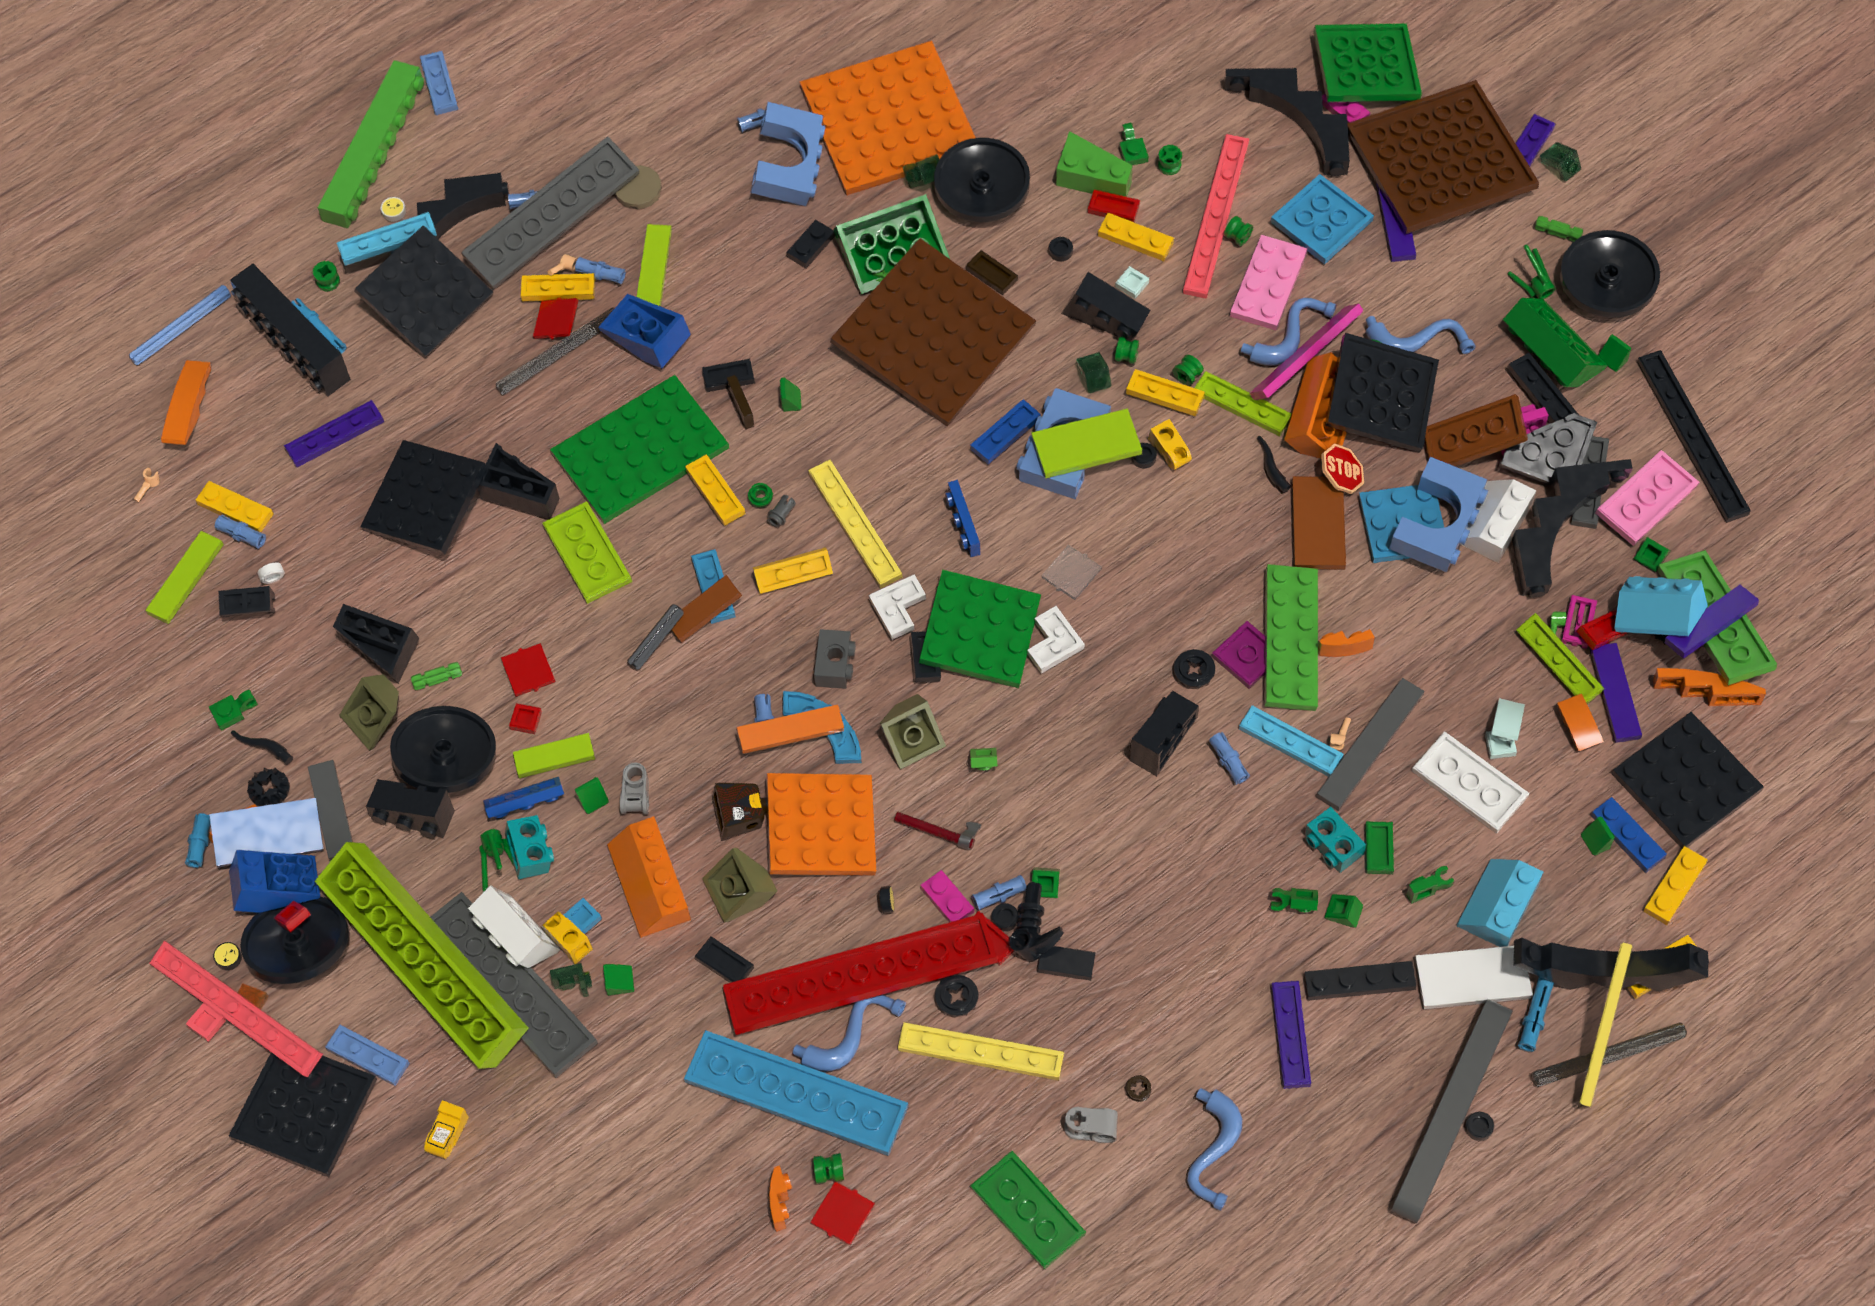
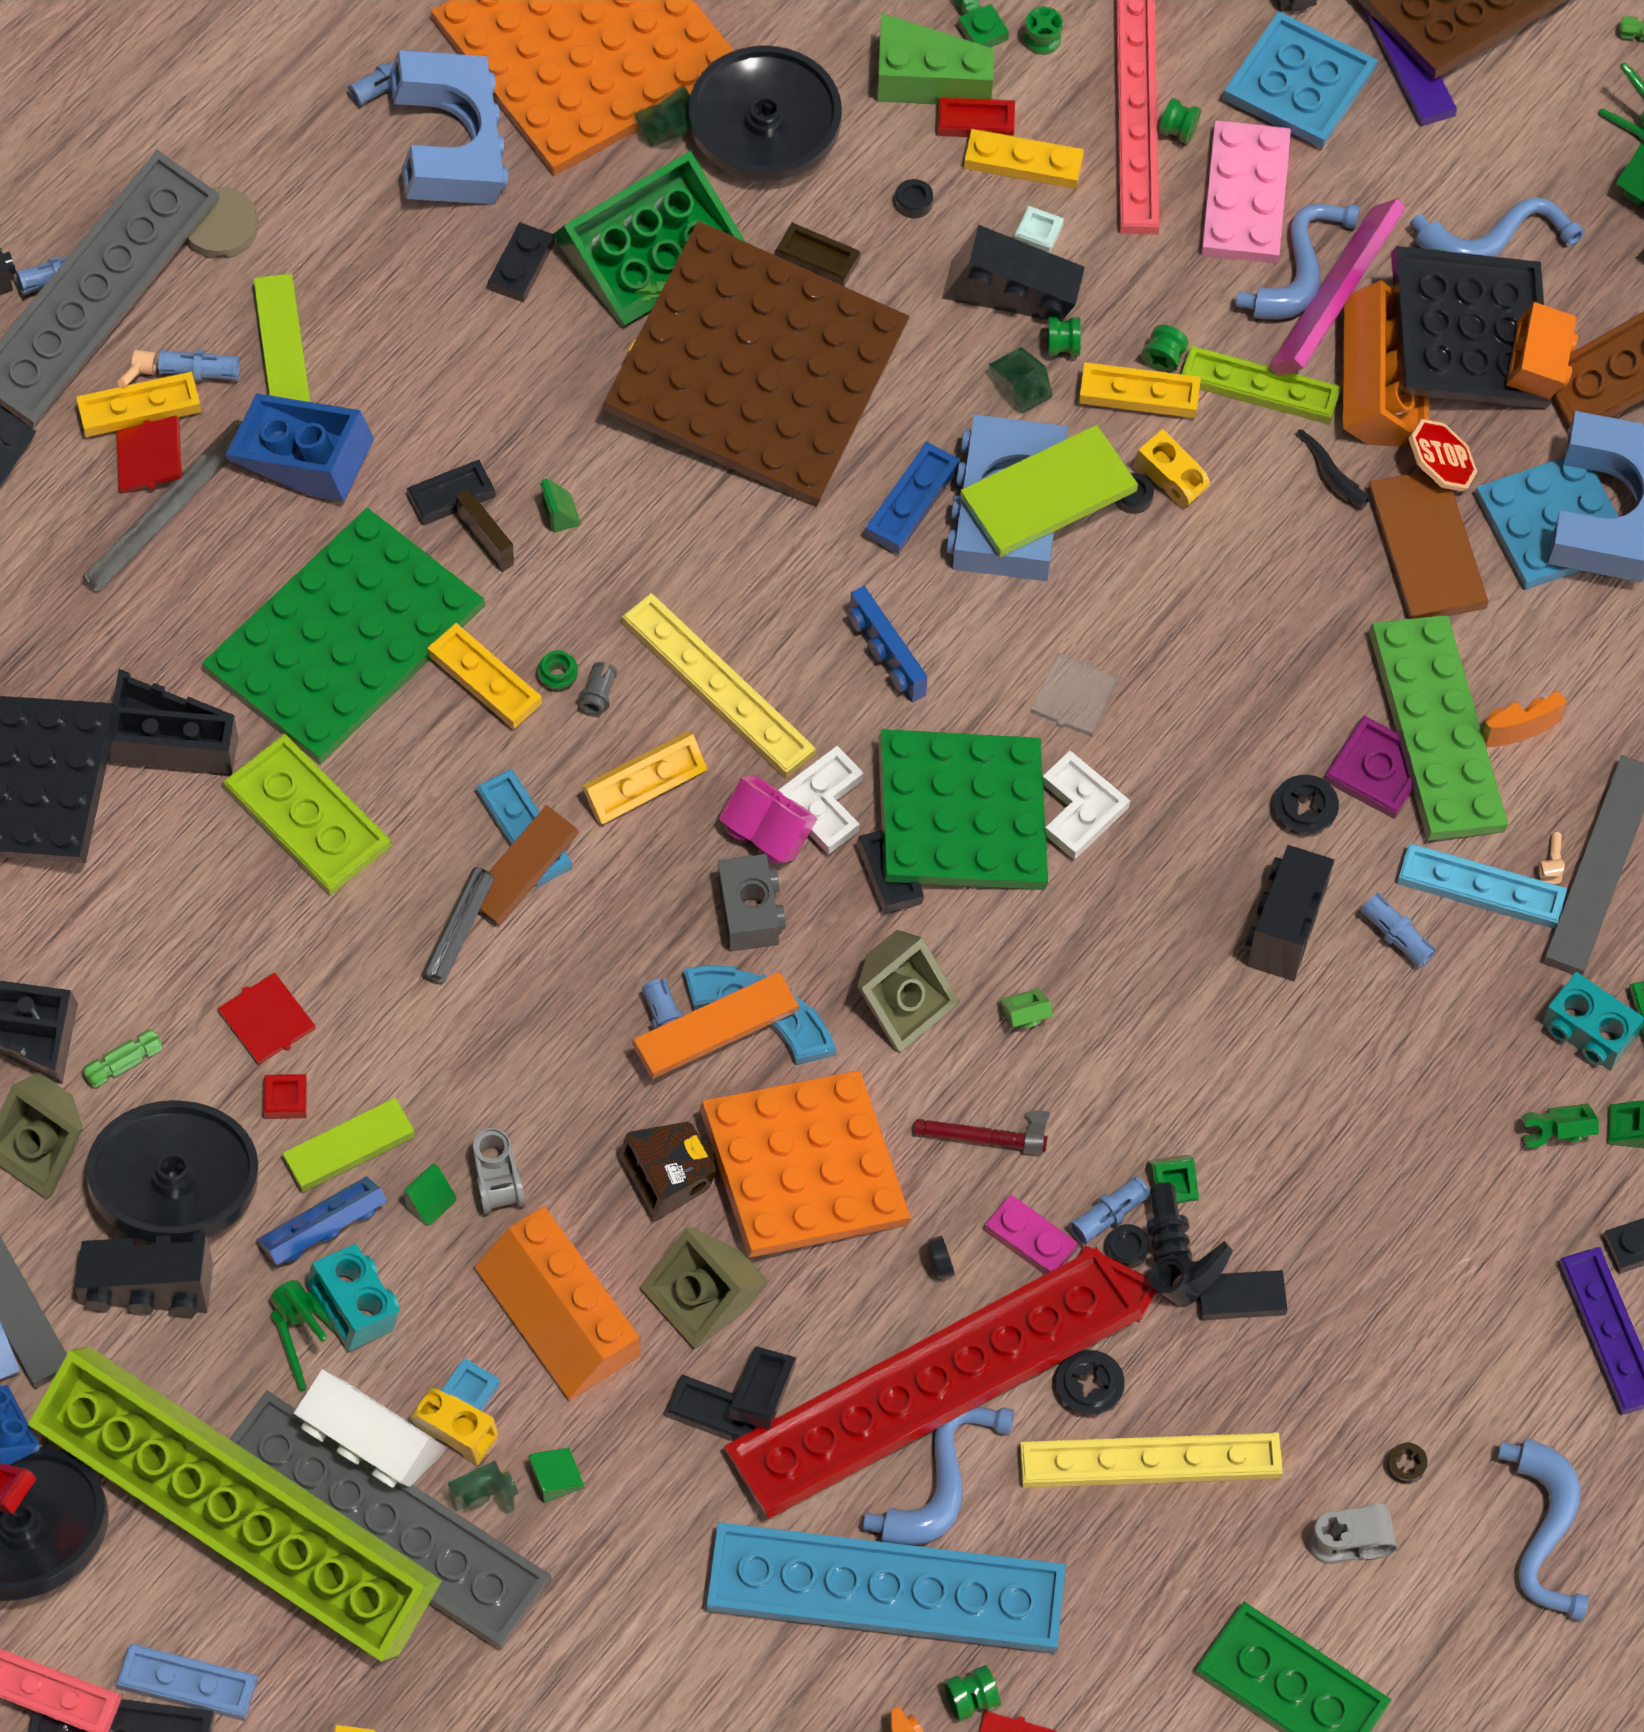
camera: 20 degrees left, 0 degrees up
(756, 954) = (762, 1387): none -> black tile
(858, 610) = (767, 819): none -> dark pink brick
(1422, 415) = (1542, 351): none -> orange brick

